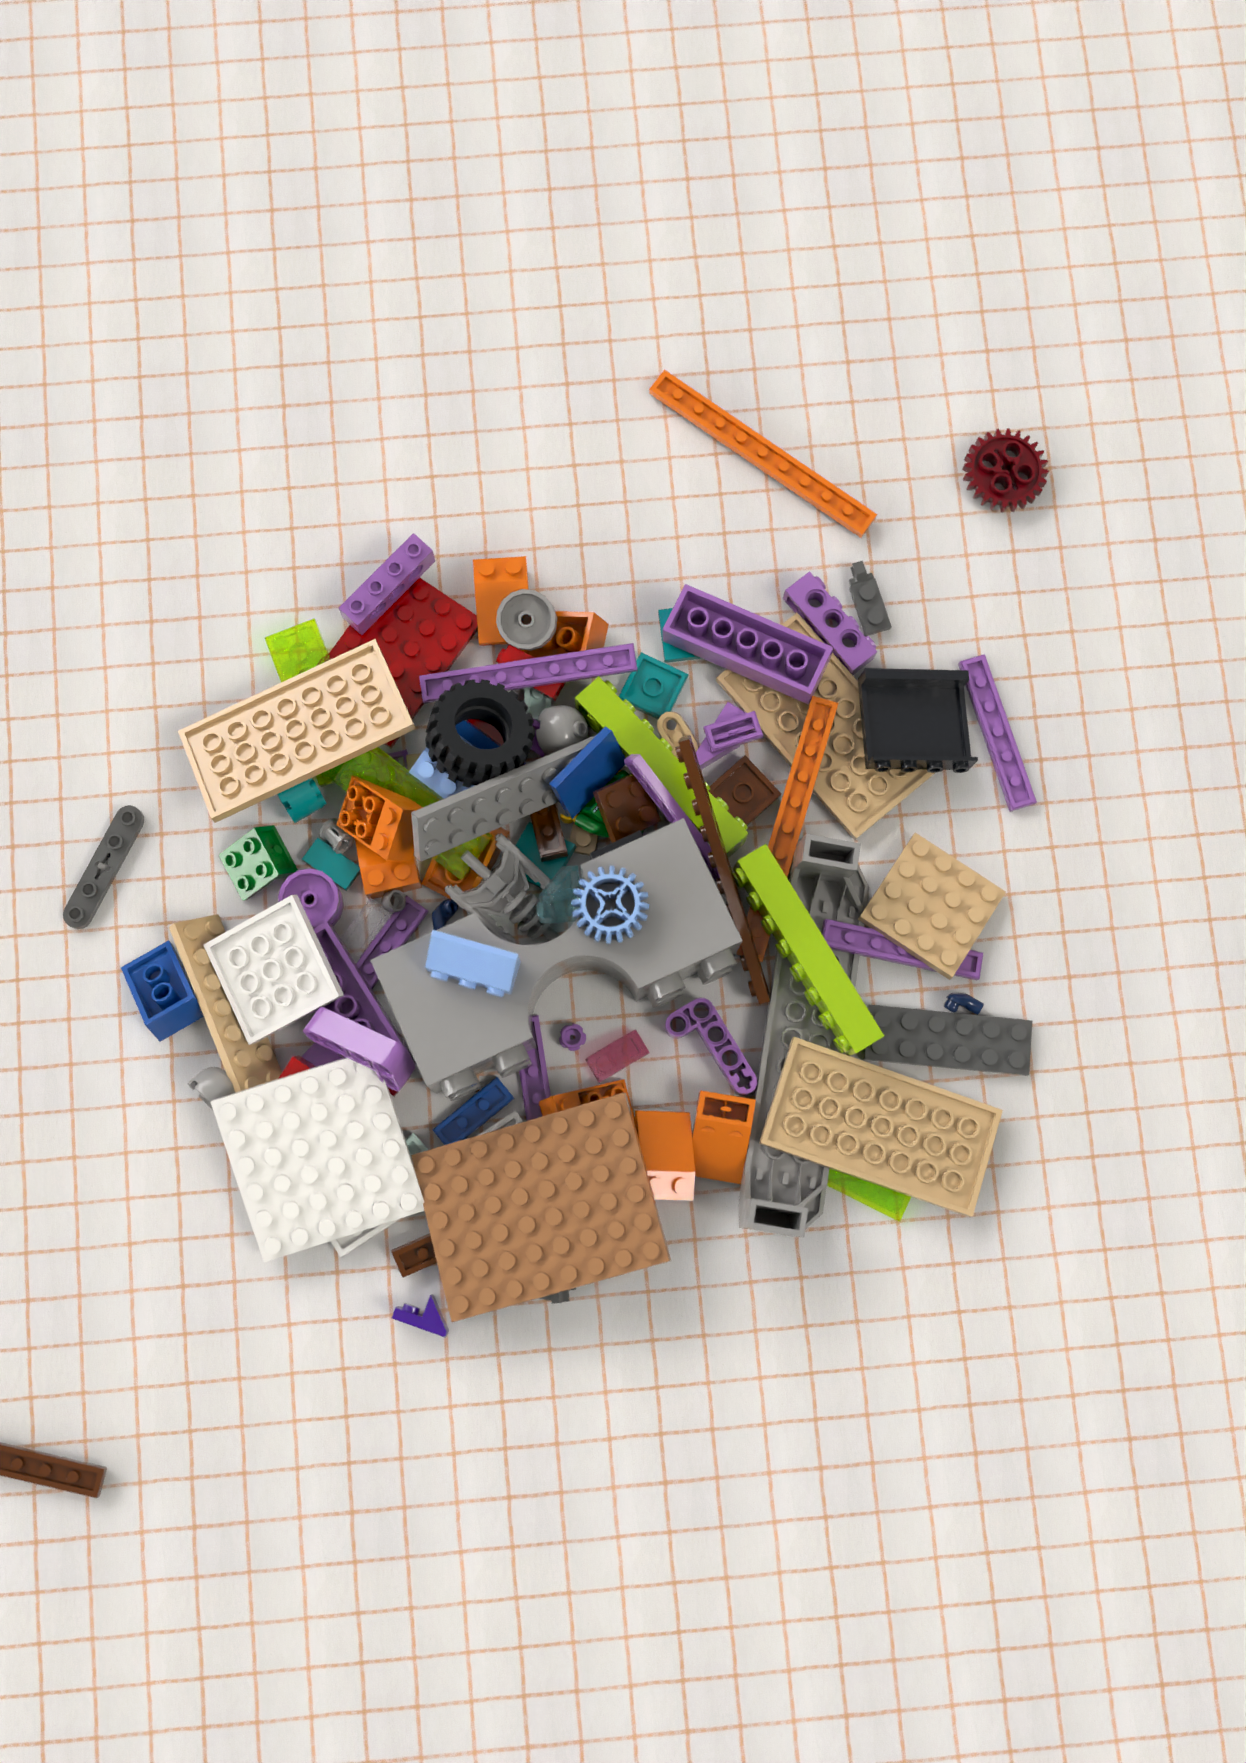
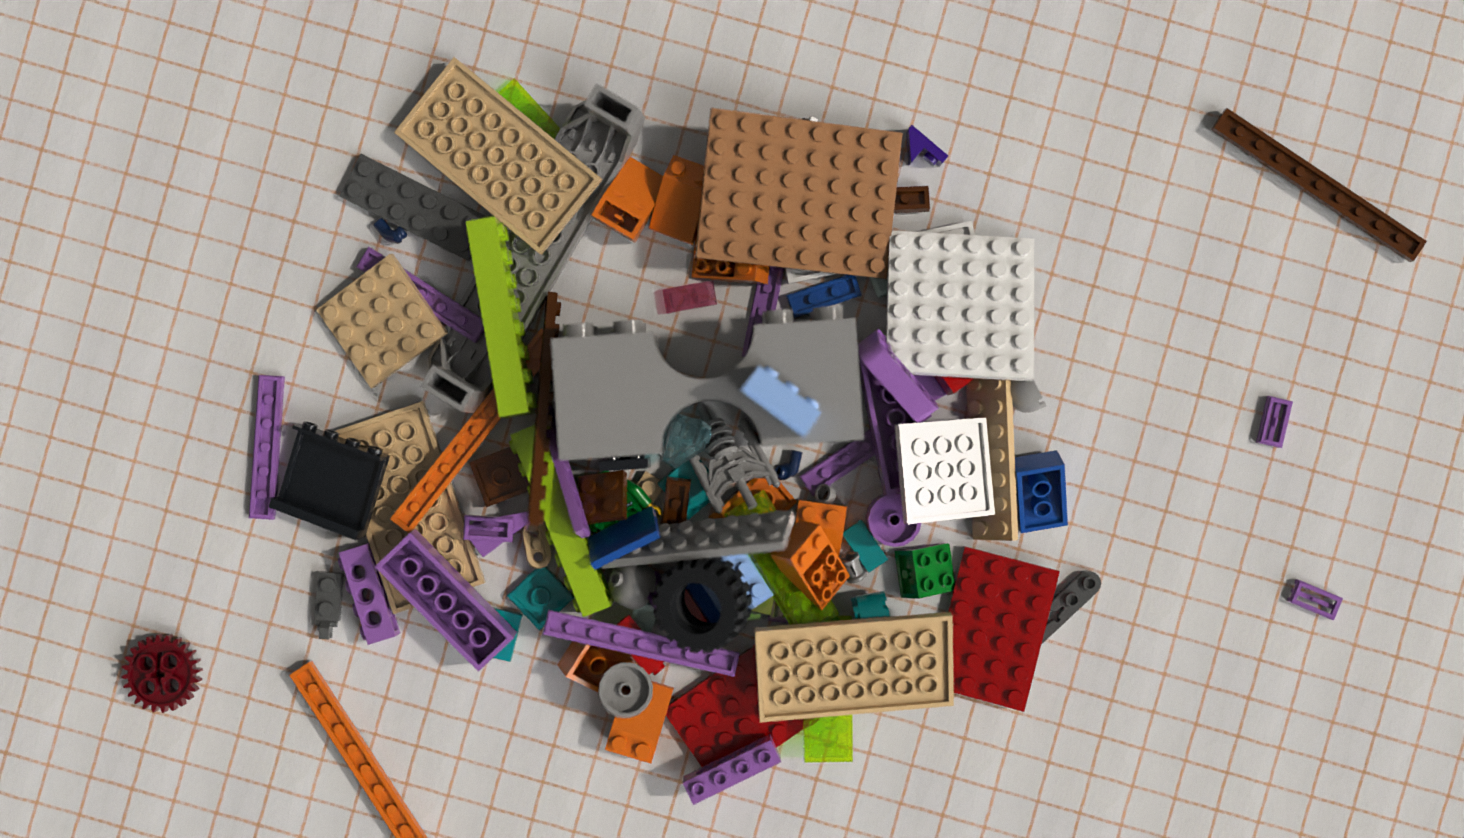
camera: 150 degrees left, 10 degrees up
(159, 833) = (999, 626): none -> red plate
(577, 1031) = (720, 320): medium lavender plate -> none
(599, 896) = (637, 389): light blue gear -> none
(716, 1049) = (606, 270): medium lavender beam -> none

